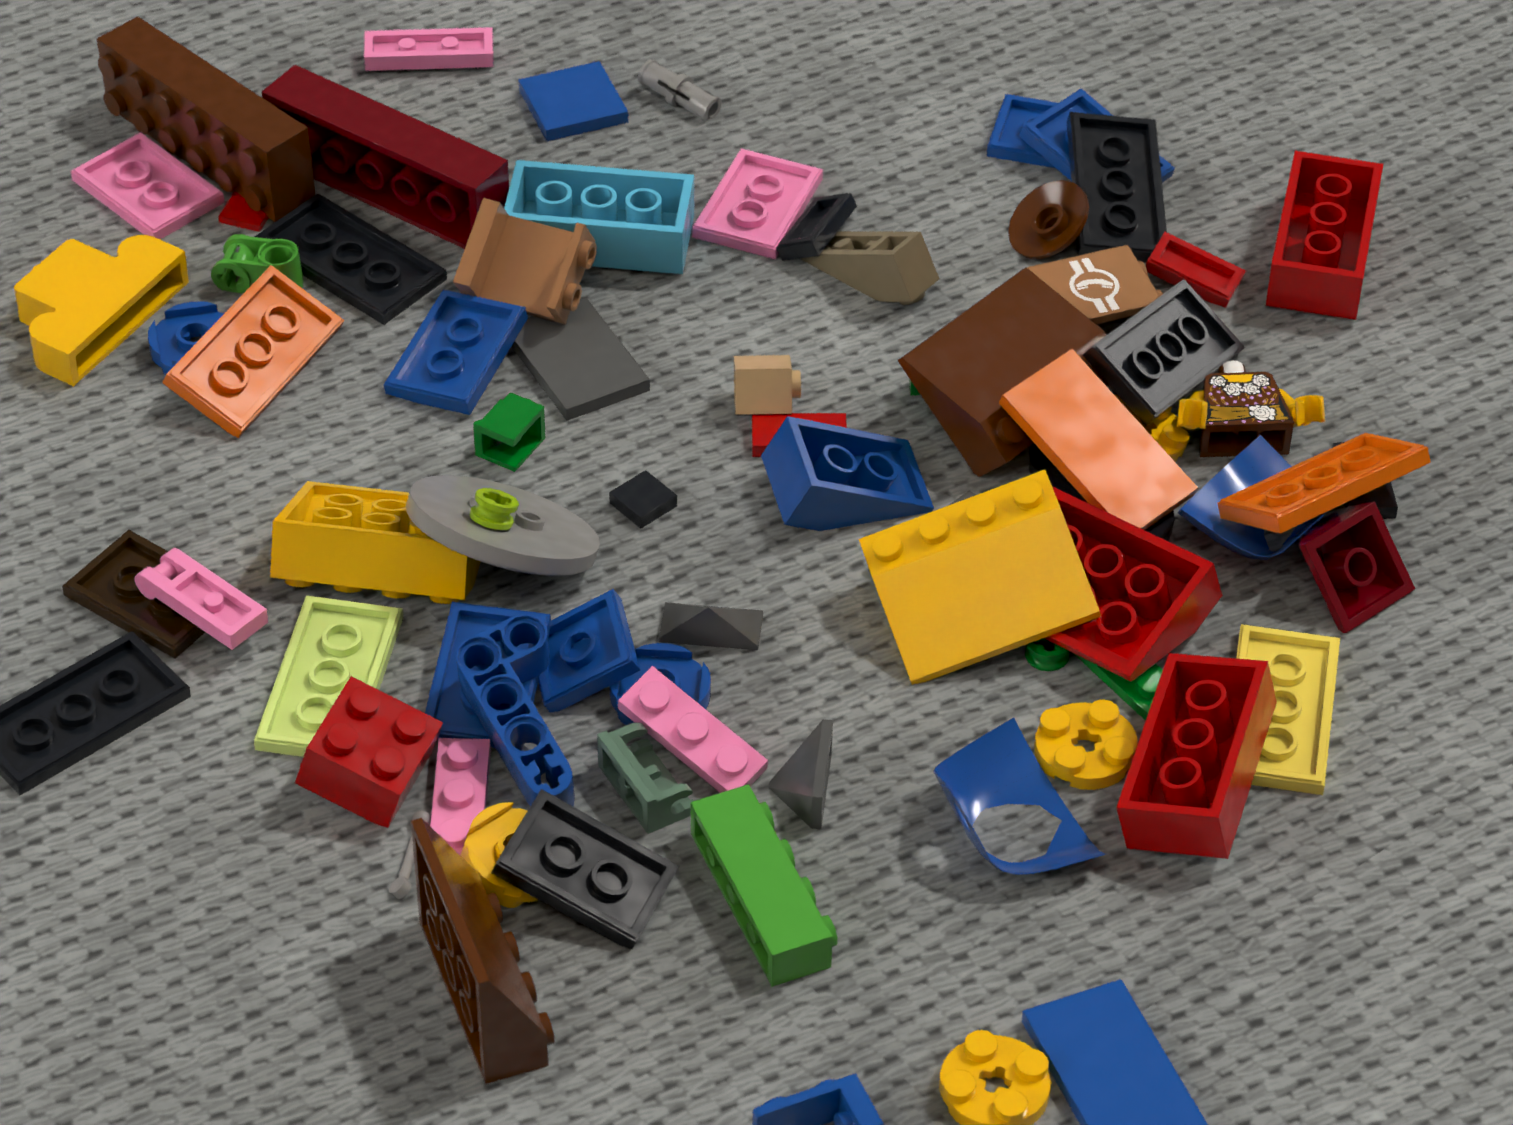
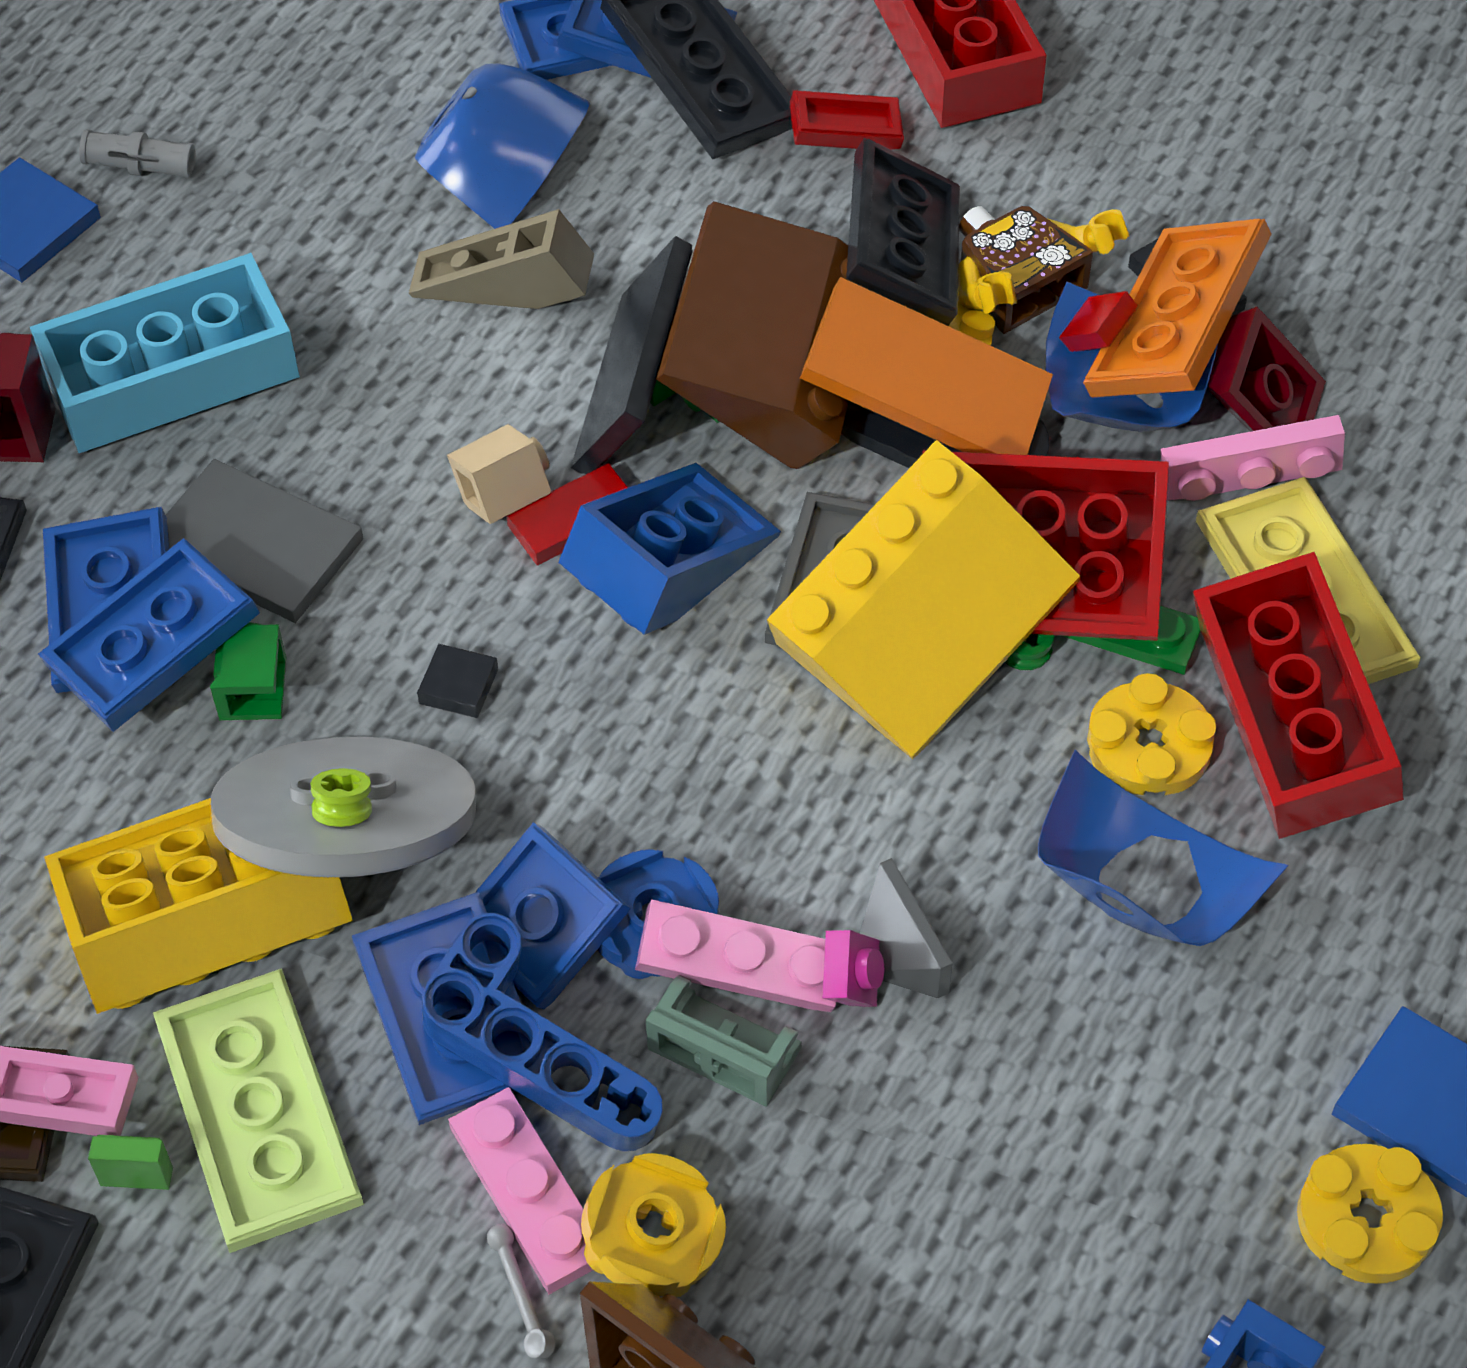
camera: 30 degrees left, 10 degrees up
(229, 666) = (130, 1162): none -> bright green tile
(368, 752) = (393, 1191): red brick -> none
(459, 375) = (149, 634): none -> blue tile
(525, 263) = (132, 452): medium nougat panel -> none
(585, 869) = (748, 1202): black tile -> none
(711, 626) = (646, 801): dark grey slope -> none
(757, 203) = (322, 251): bright pink tile -> none
(760, 769) = (852, 968): none -> dark pink plate
(762, 885) = (953, 1106): bright green brick -> none
(816, 226) = (412, 251): black tile -> none
(886, 364) = (632, 357): none -> black tile
(934, 178) = (501, 140): none -> blue piece
(1048, 219) = (644, 117): reddish brown dish -> none
(1101, 283) = (776, 179): medium nougat panel -> none
(1260, 469) = (1098, 321): none -> red tile
(1303, 605) = (1255, 458): none -> bright pink plate

